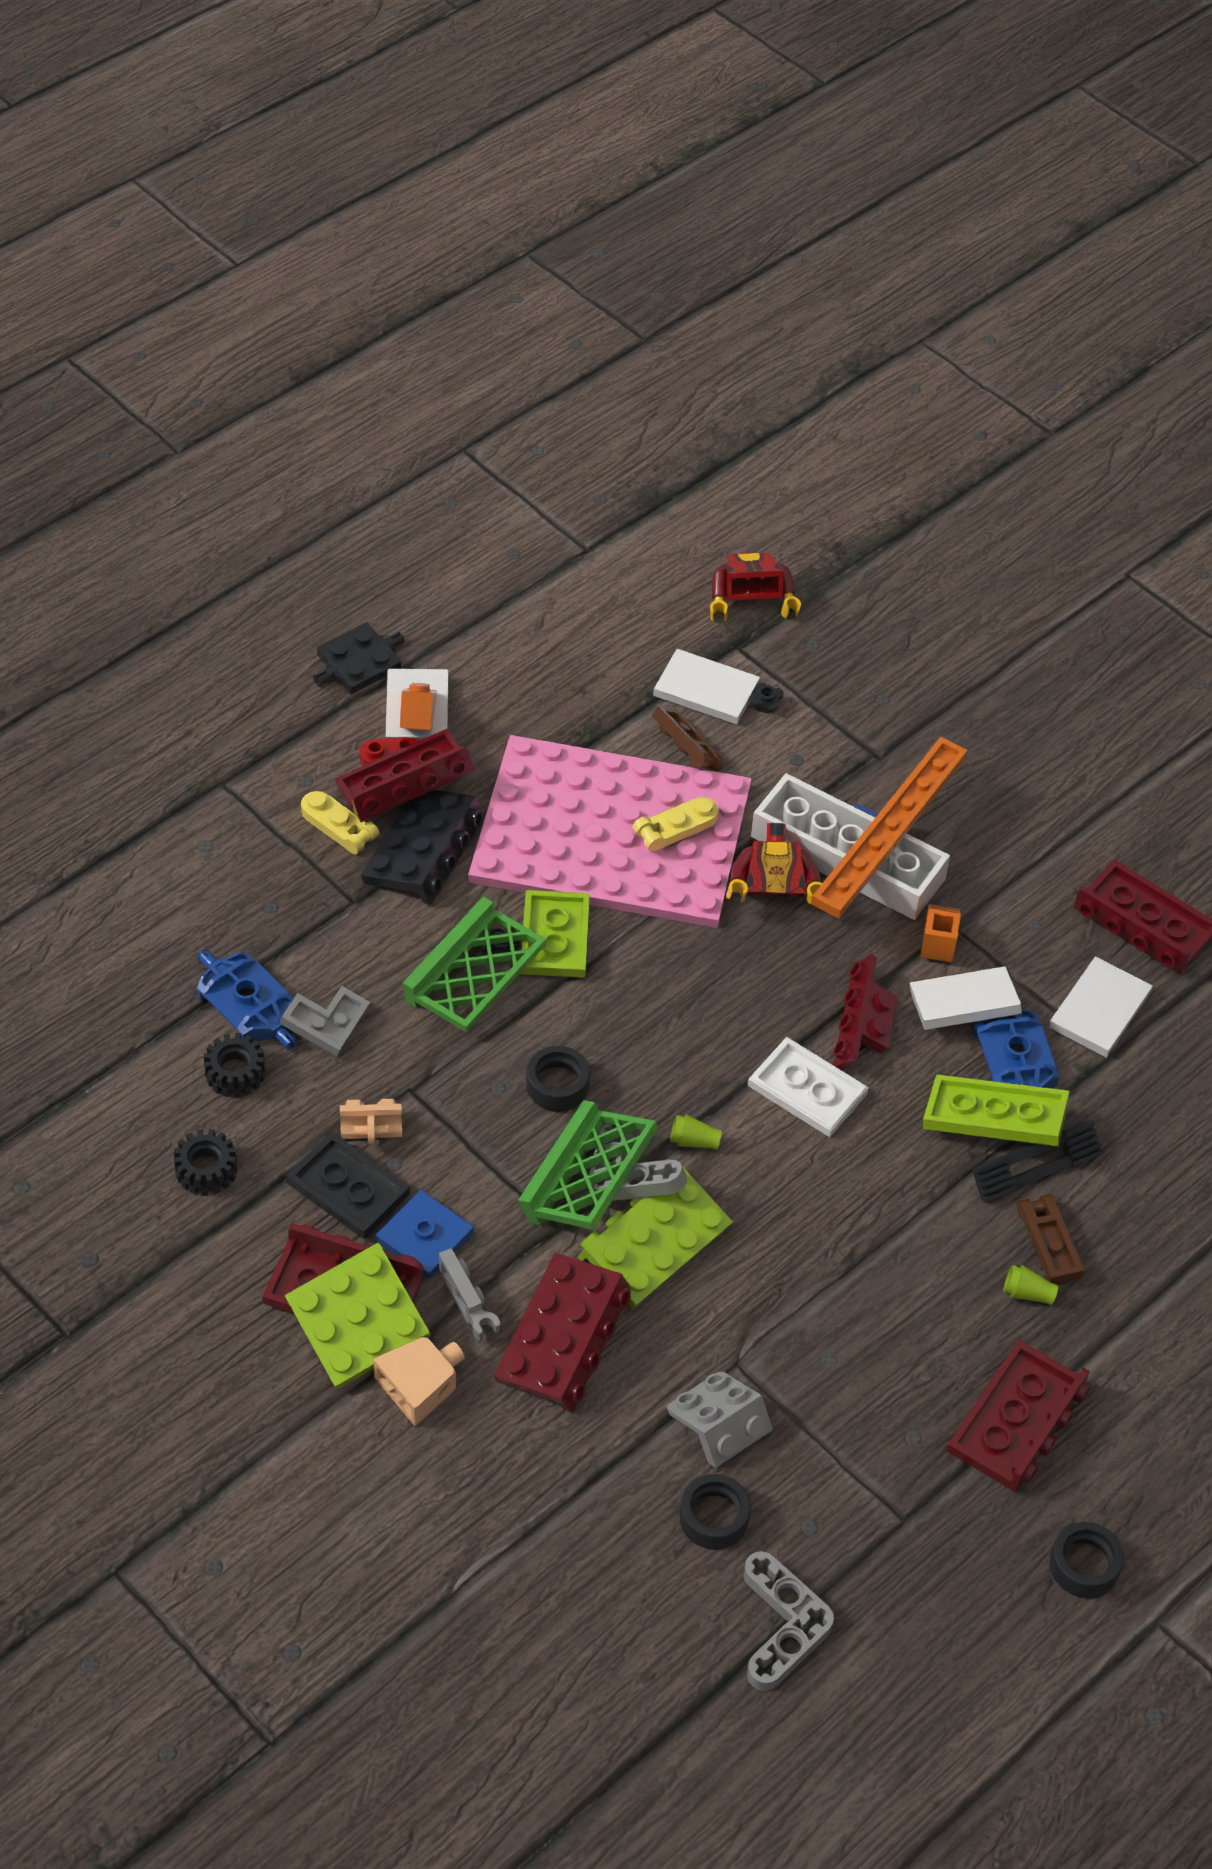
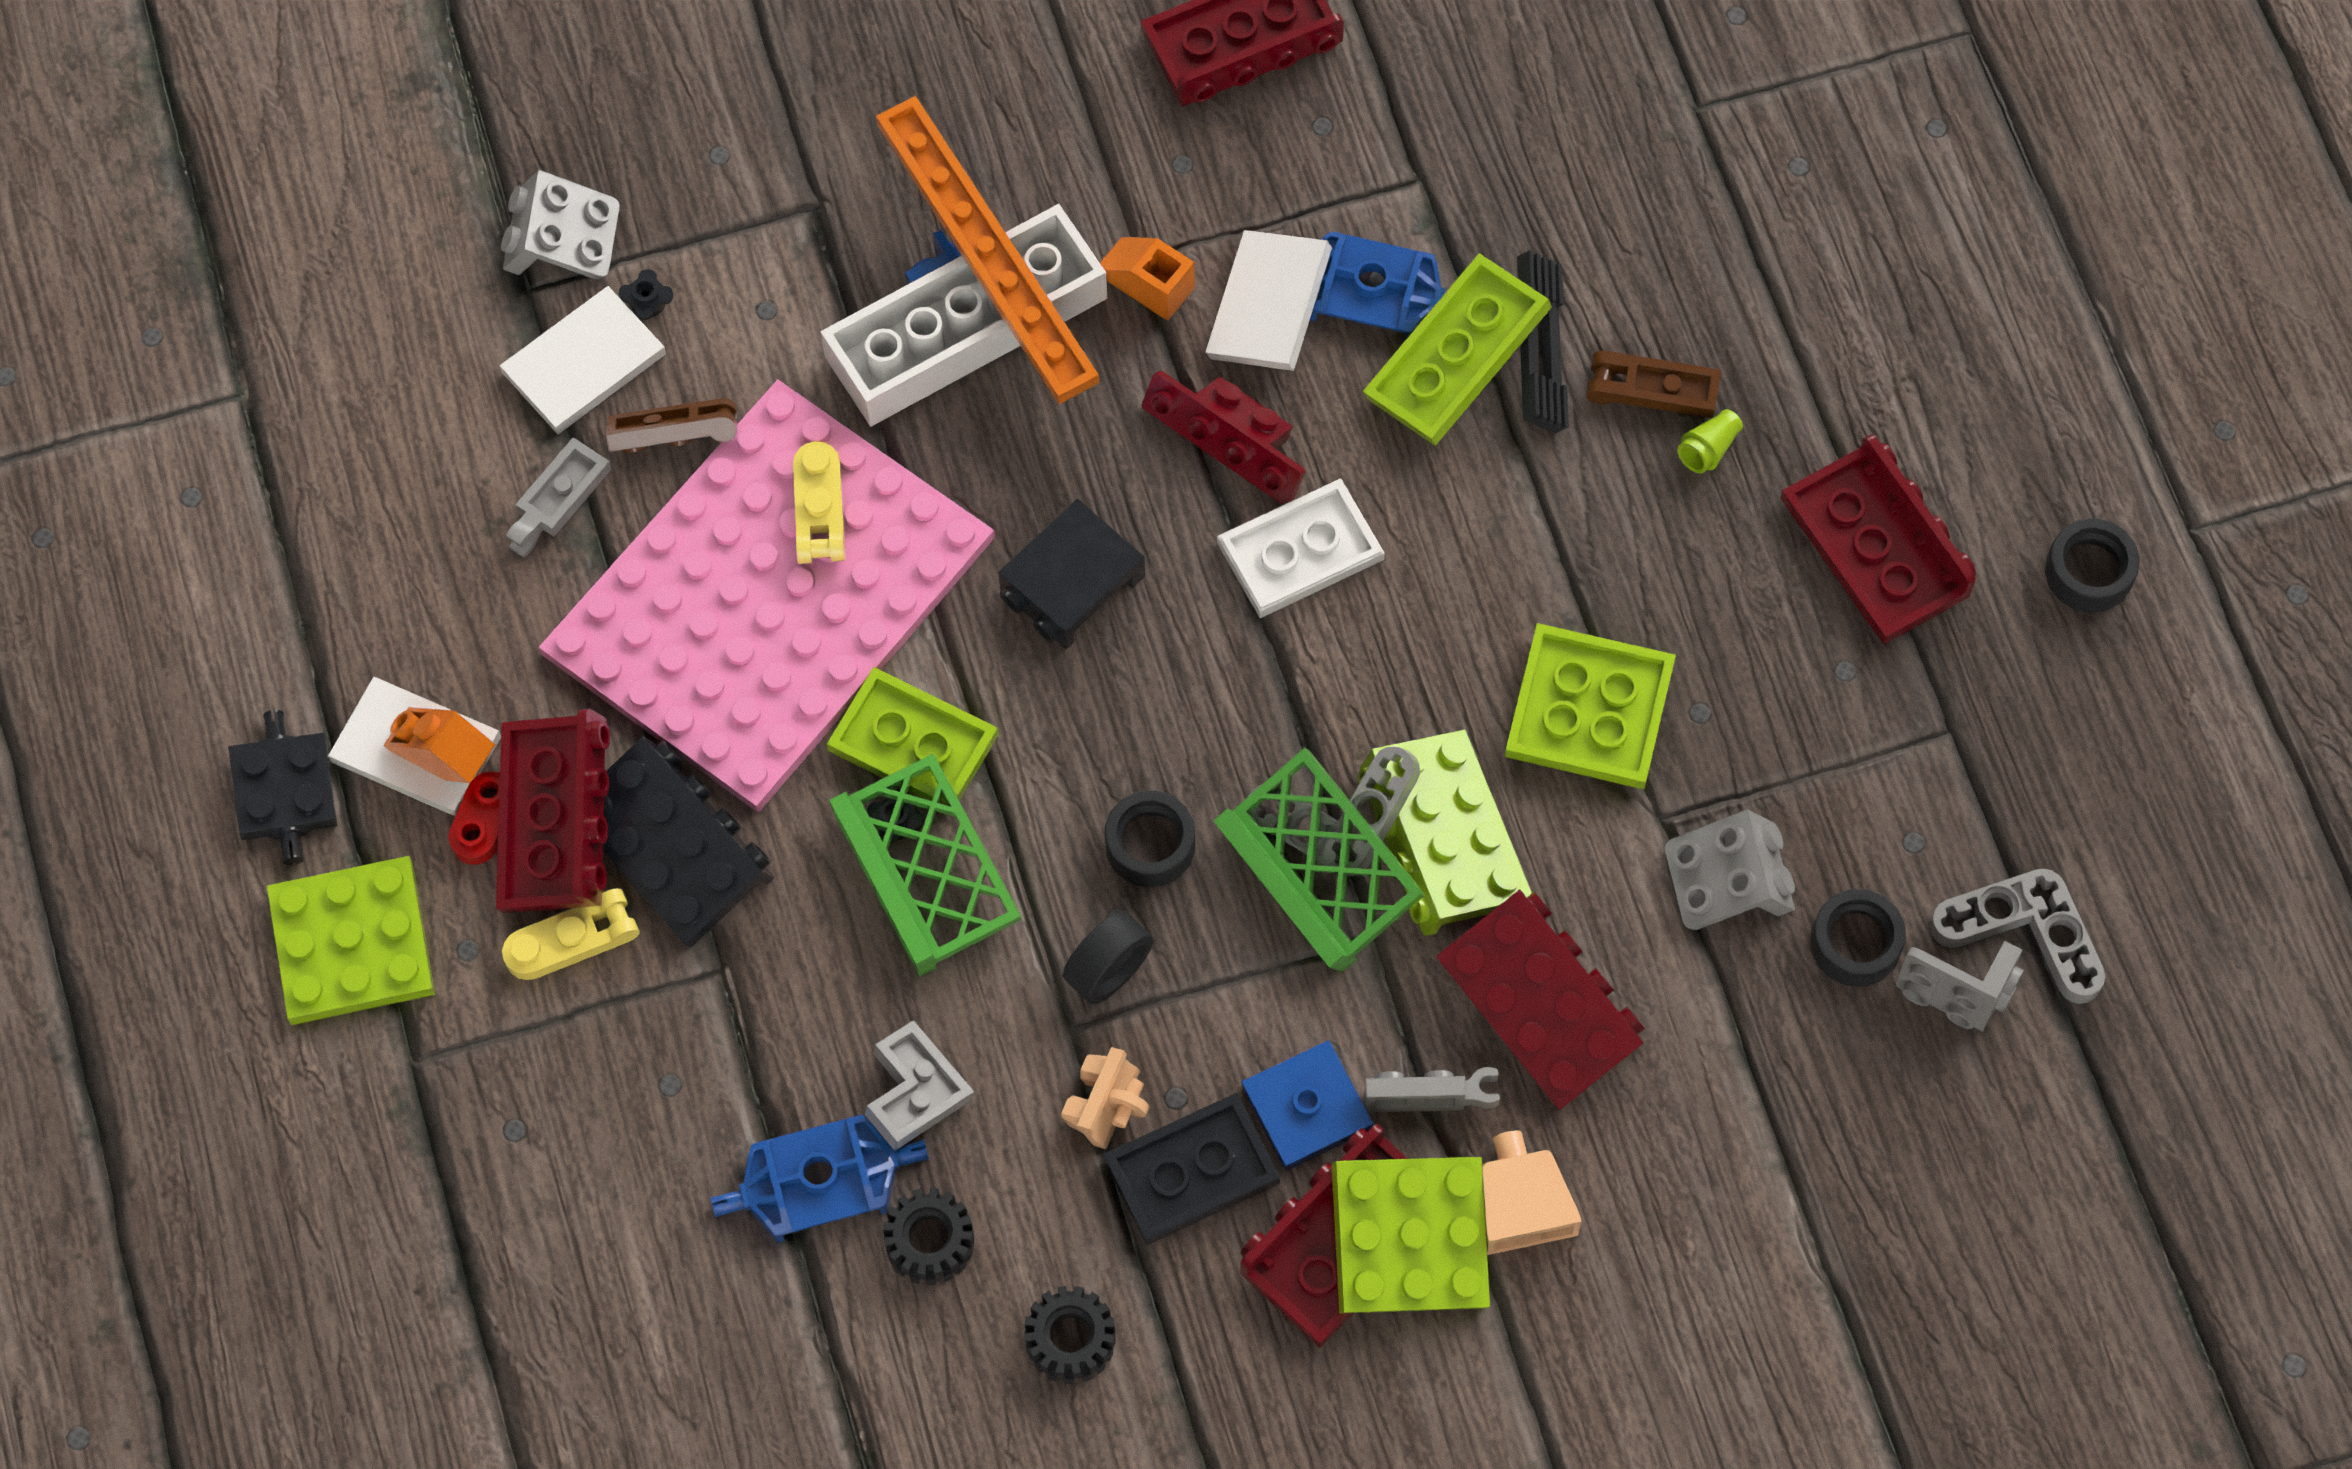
camera: 60 degrees left, 15 degrees up
(282, 725) = (350, 940): none -> lime plate
(467, 1068) = (1107, 957): none -> black tyre
(610, 705) = (556, 495): none -> light grey plate
(694, 1133) = (1311, 716): lime cone -> none
(712, 965) = (1069, 573): none -> black panel
(712, 1599) = (1958, 994): none -> light grey bracket
(752, 577) = (435, 211): torso -> none
(774, 868) = (960, 420): torso -> none
(783, 641) = (560, 226): none -> light grey bracket
(792, 1287) = (1590, 706): none -> lime plate
(1100, 1006) = (1346, 155): white tile -> none

